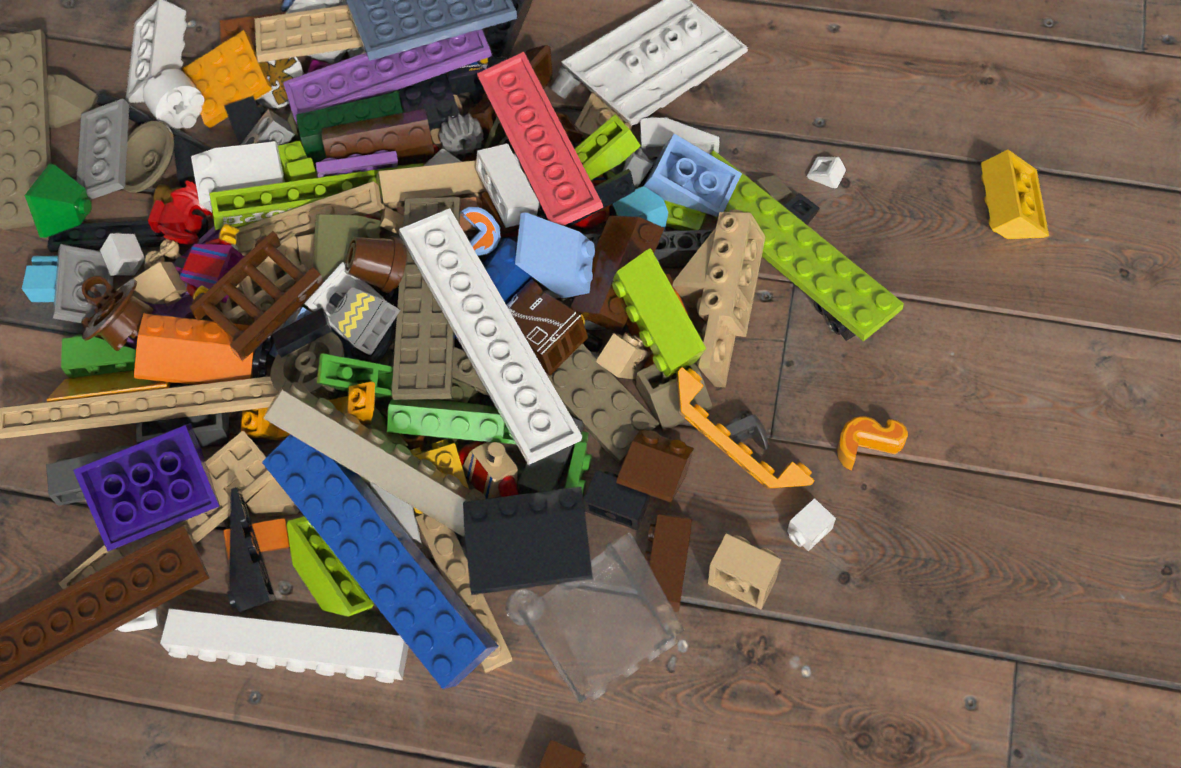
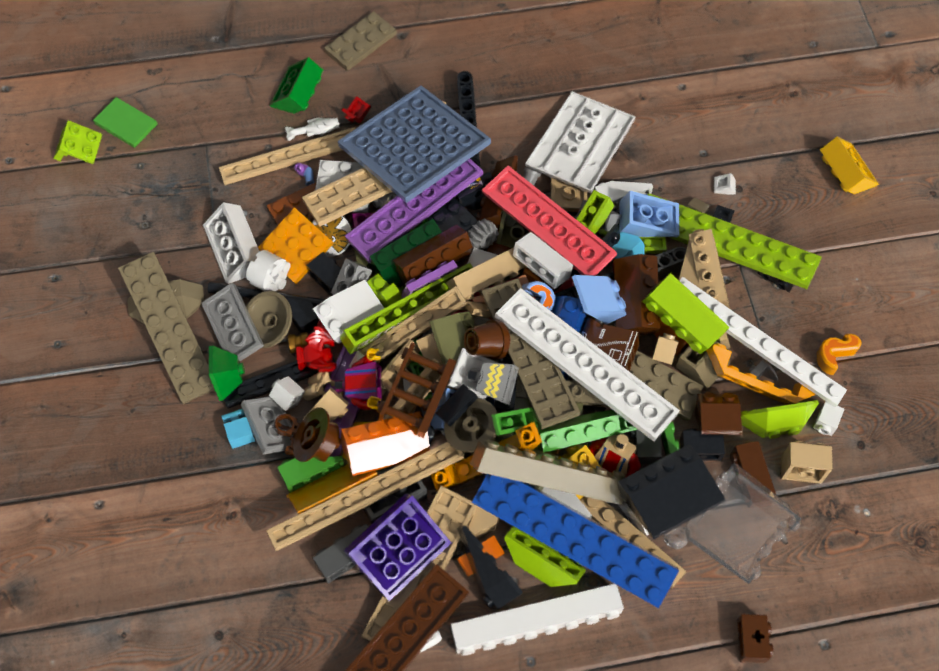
camera: 25 degrees left, 0 degrees up
(741, 502) = (778, 420): none -> lime wedge
(757, 394) = (772, 350): none -> white plate

